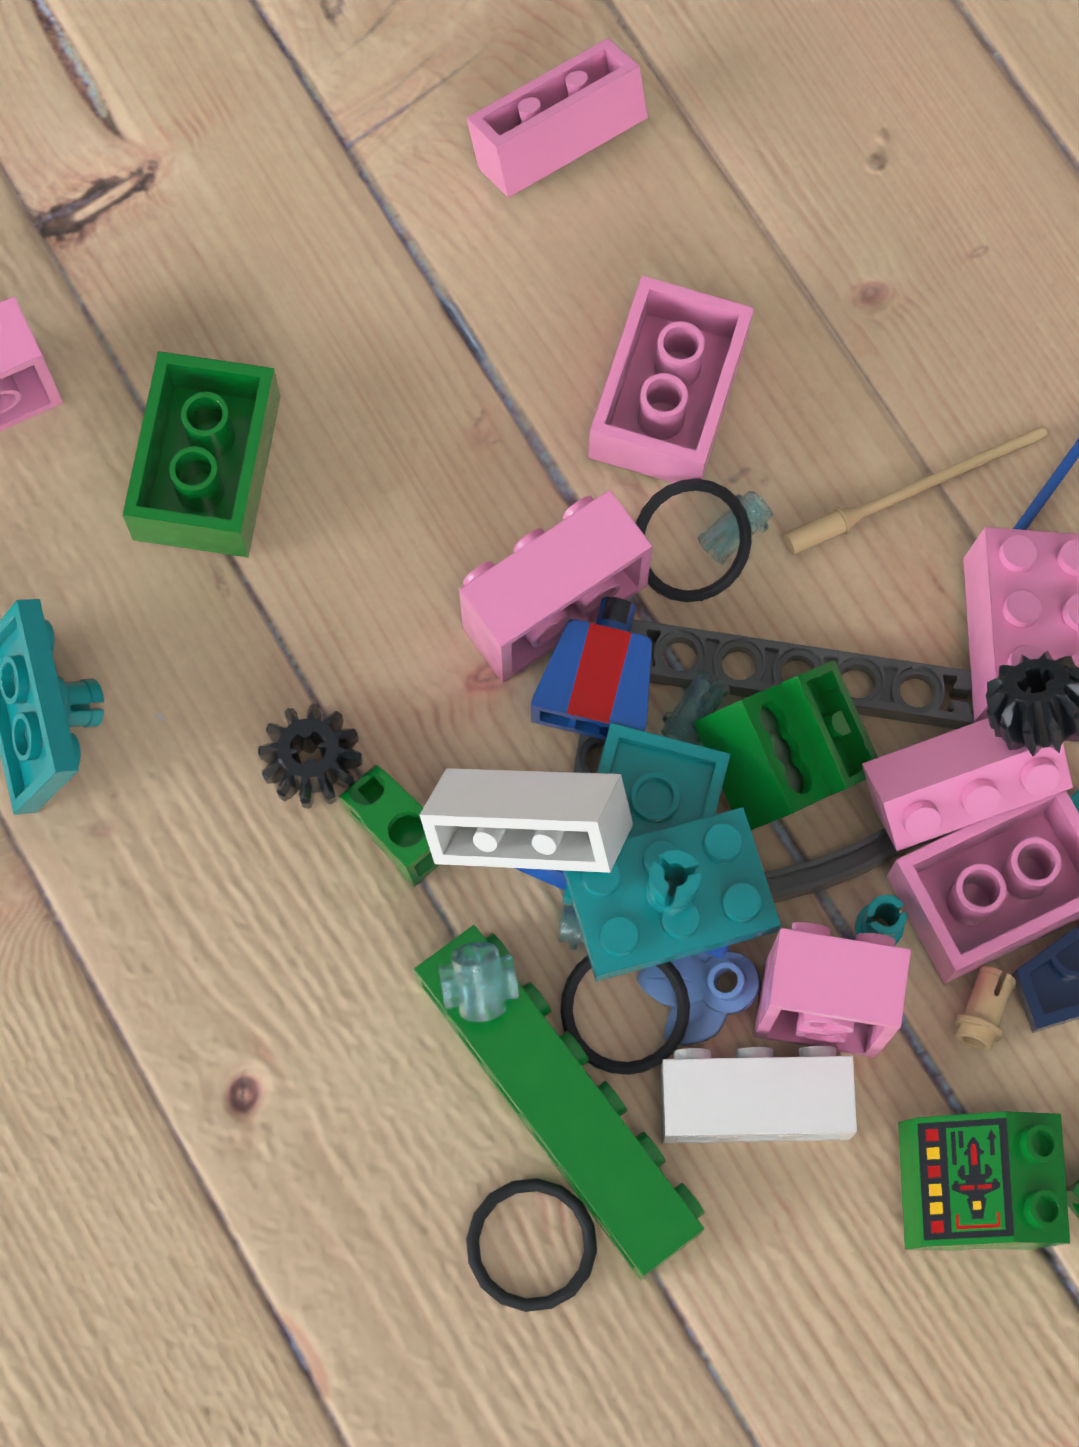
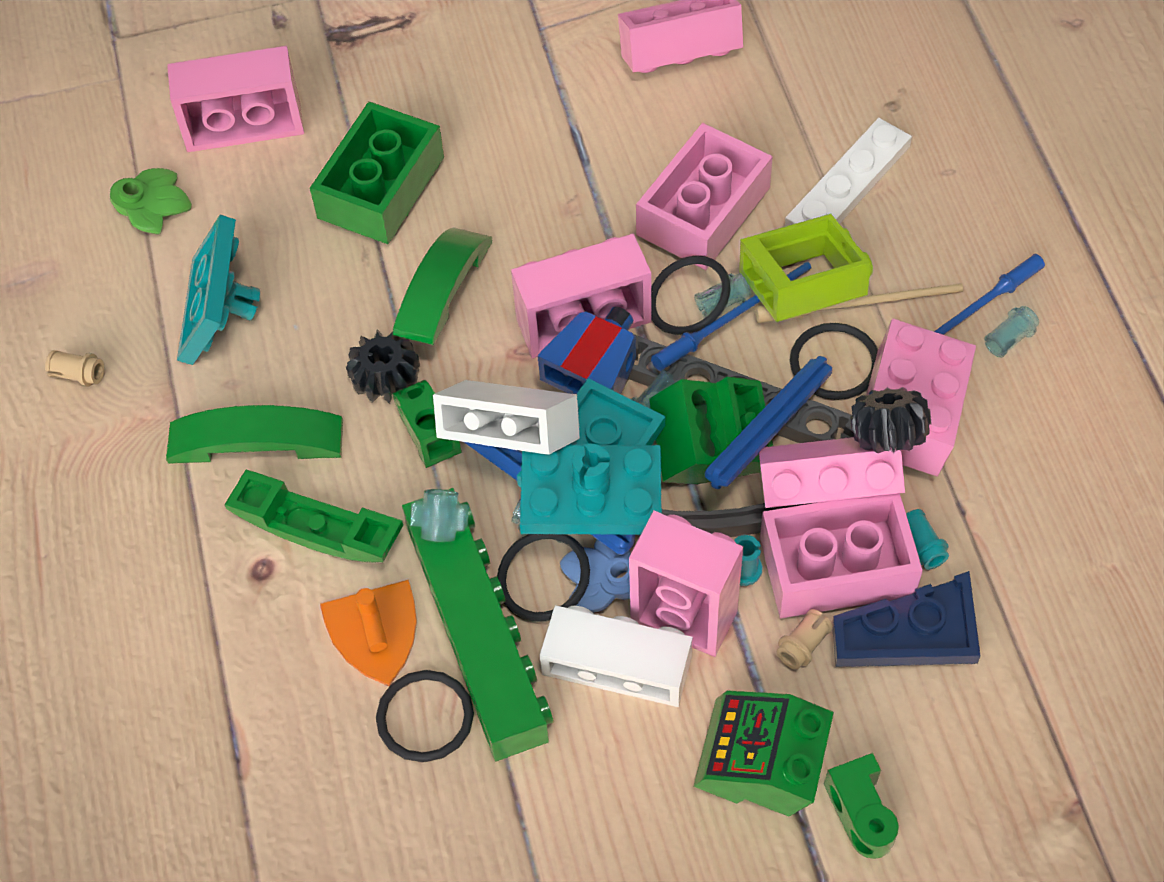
camera: 20 degrees right, 15 degrees down
(164, 901) = (254, 429): none -> green slope
(295, 1011) = (312, 522): none -> green slope
(351, 611) = (436, 282): none -> green slope
(423, 1140) = (374, 629): none -> orange shield
(717, 616) = (690, 341): none -> blue piece
(805, 505) = (767, 252): none -> lime window
(851, 302) = (853, 174): none -> white plate
(865, 723) = (768, 423): none -> blue axle
(875, 626) = (826, 327): none -> black tyre

